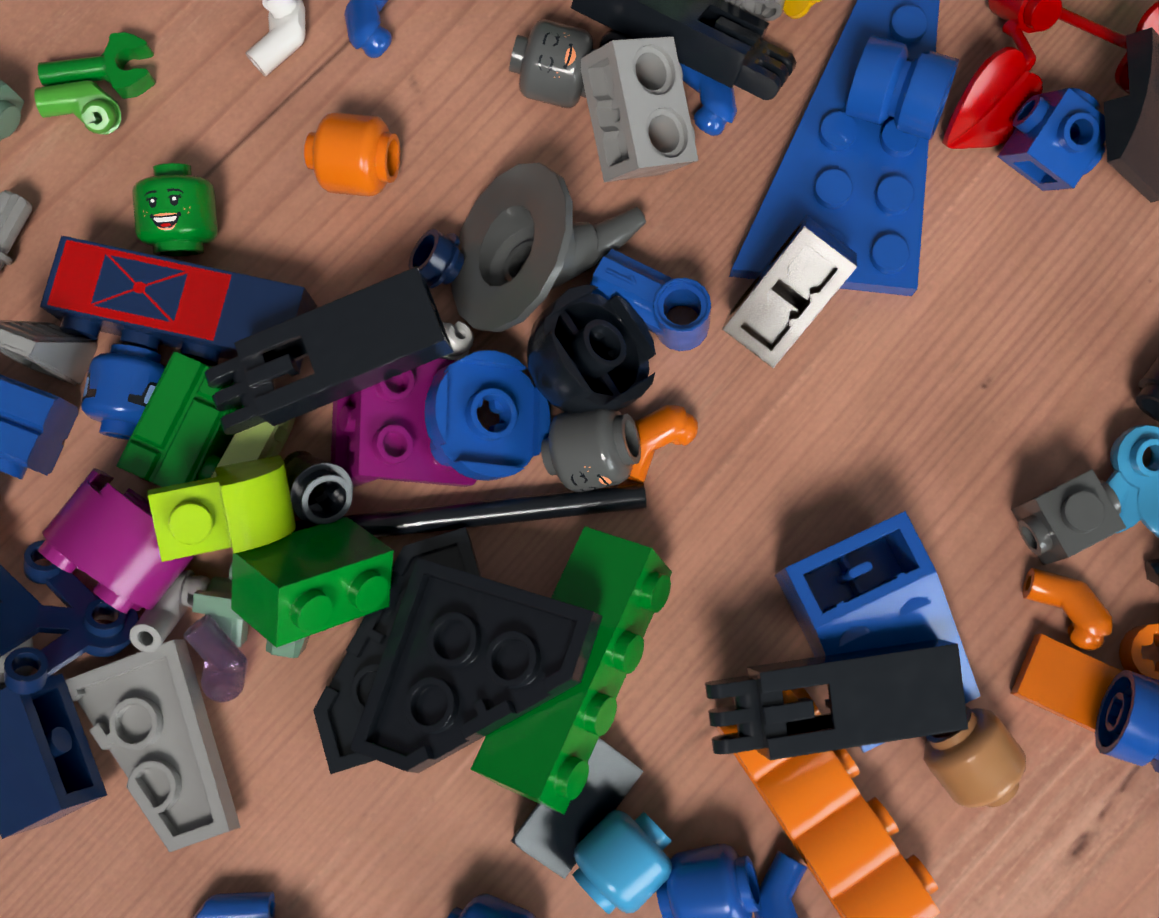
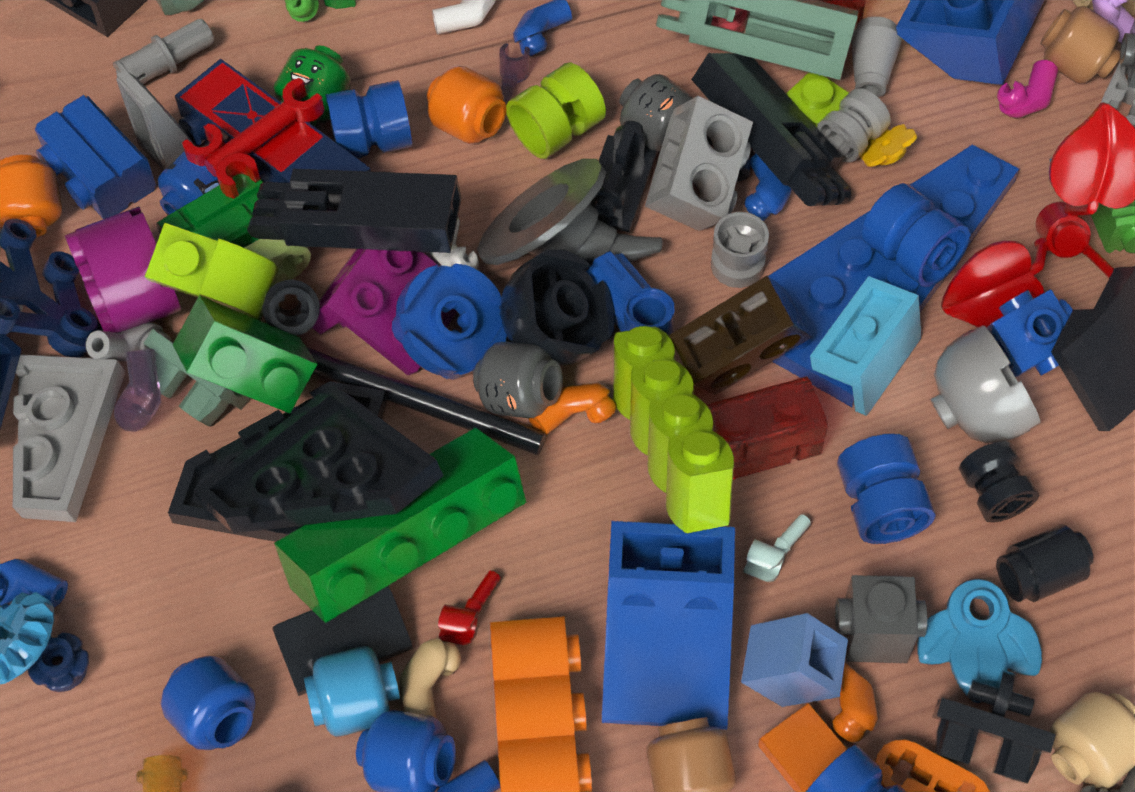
camera: 25 degrees right, 20 degrees down
(148, 356) = (232, 158): none -> red bar
(263, 224) = (370, 119): none -> blue wheel
(372, 85) = (512, 70): none -> hand
(437, 257) = (484, 203): dark blue plate -> none
(454, 107) = (560, 108): none -> lime wheel
(553, 138) = (627, 173): none -> black hinge
(673, 797) = (423, 670): none -> tan arm
(676, 727) = (460, 624): none -> red hand
(728, 169) = (739, 249): none -> light grey wheel
(789, 433) = (673, 429): none -> lime brick
(853, 376) = (771, 426): none -> clear red brick
(871, 699) = (617, 650): black hinge -> none
(904, 222) = (870, 341): none -> medium azure panel
(928, 504) = (766, 560): none -> light aqua hand
(1004, 379) = (885, 482): none -> blue wheel
(1017, 607) = (795, 660): none -> medium blue brick
(1041, 224) = (981, 390): none -> light grey cylinder
(1112, 321) = (998, 481): none -> black wheel

